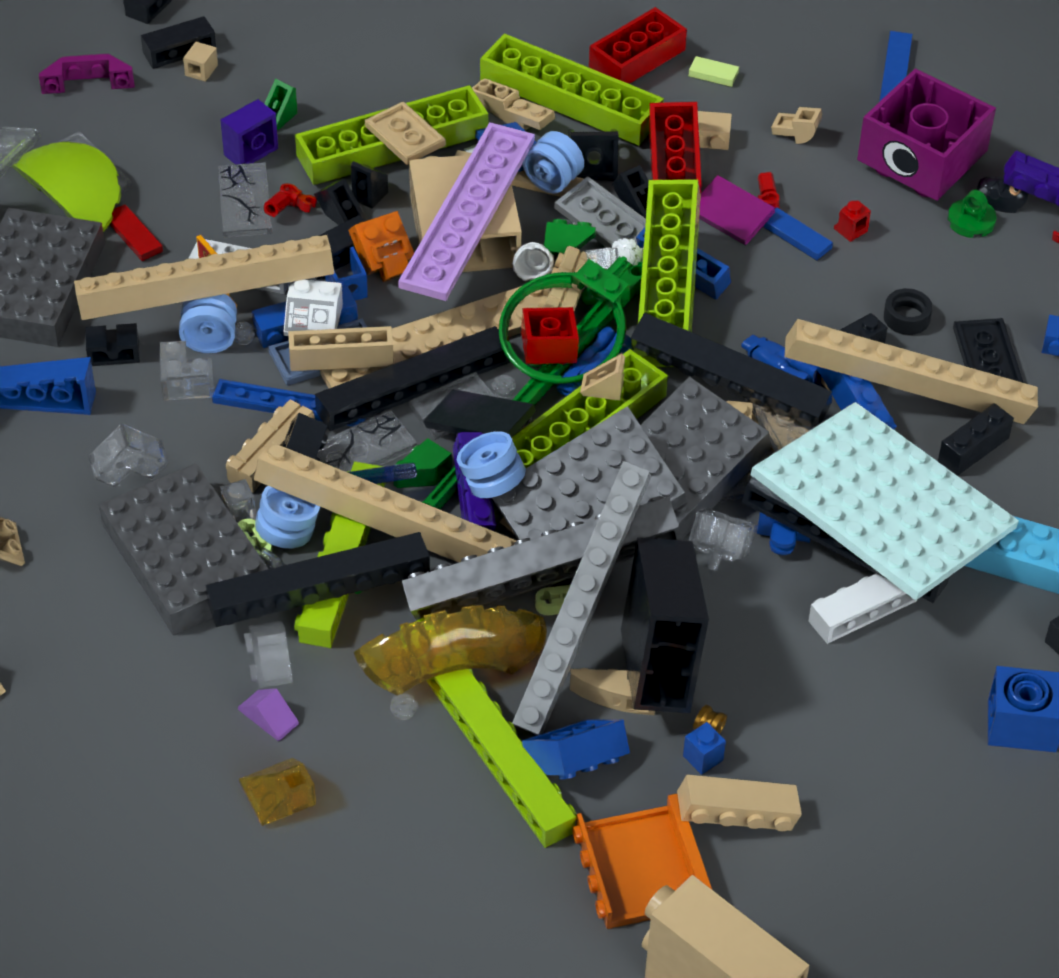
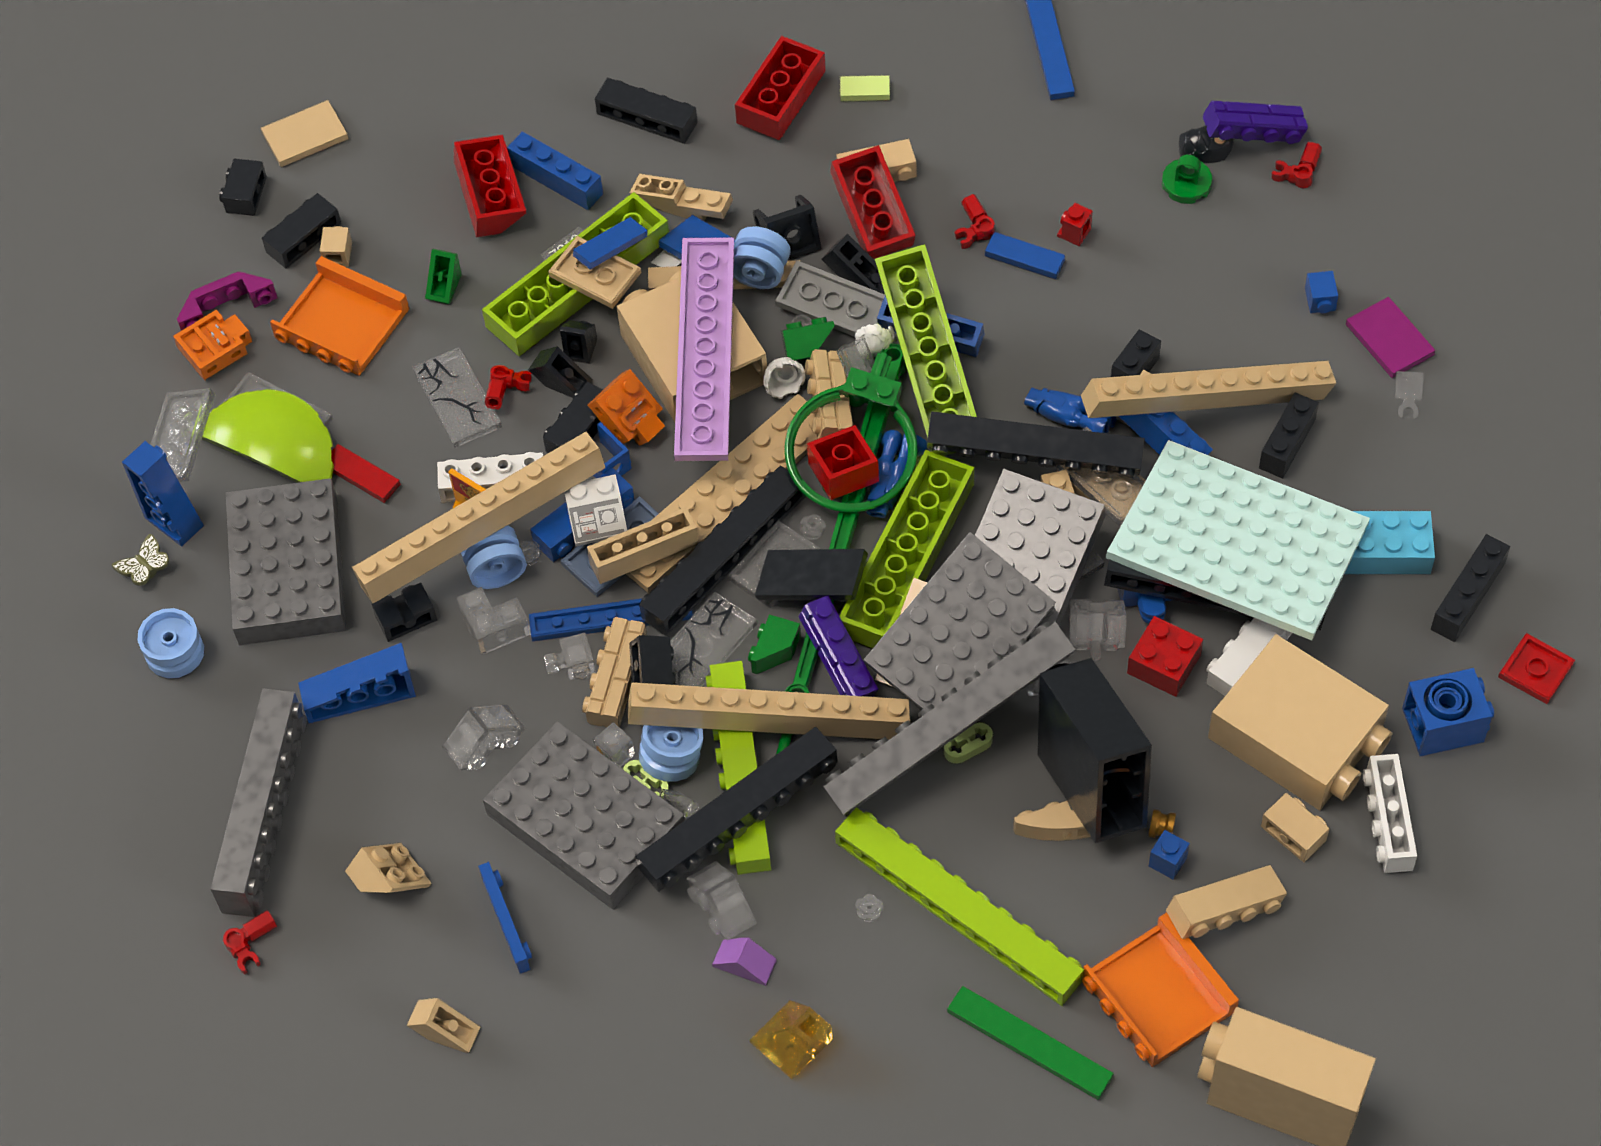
camera: 15 degrees left, 10 degrees up
(61, 101) = (213, 343): none -> orange piece
(70, 636) = (492, 882): none -> blue plate
(177, 114) = (342, 317): none -> orange panel
(241, 422) = (574, 657): none -> clear brick
(249, 133) = (431, 321): dark purple brick -> none
(350, 49) = (488, 184): none -> red slope
(388, 473) = (746, 671): axle -> none
(413, 57) = (555, 170): none -> blue brick
(427, 113) = (610, 243): none -> blue tile
(452, 643) = (896, 835): clear yellow brick -> none
(491, 464) = (859, 634): light blue wheel -> none
(494, 20) = (646, 110): none -> black brick
(499, 868) = (1030, 1042): none -> green tile
(569, 88) = (733, 159): lime brick -> none
(579, 747) = (1054, 896): blue slope -> none
(582, 599) = (1009, 752): light grey brick -> none
(605, 380) = (919, 496): tan slope -> none
(733, 210) = (955, 249): magenta tile -> none
(776, 583) = (1165, 656): none -> red brick
(801, 125) = (980, 128): tan brick -> none
(837, 764) = (1295, 827): none -> tan brick
(879, 674) = (1300, 723): none -> tan brick
(910, 298) = (1168, 294): black tyre -> none
(925, 134) = (1114, 105): magenta brick -> none
(934, 782) = (1391, 813): none -> white brick
(987, 347) = (1261, 331): black tile -> none

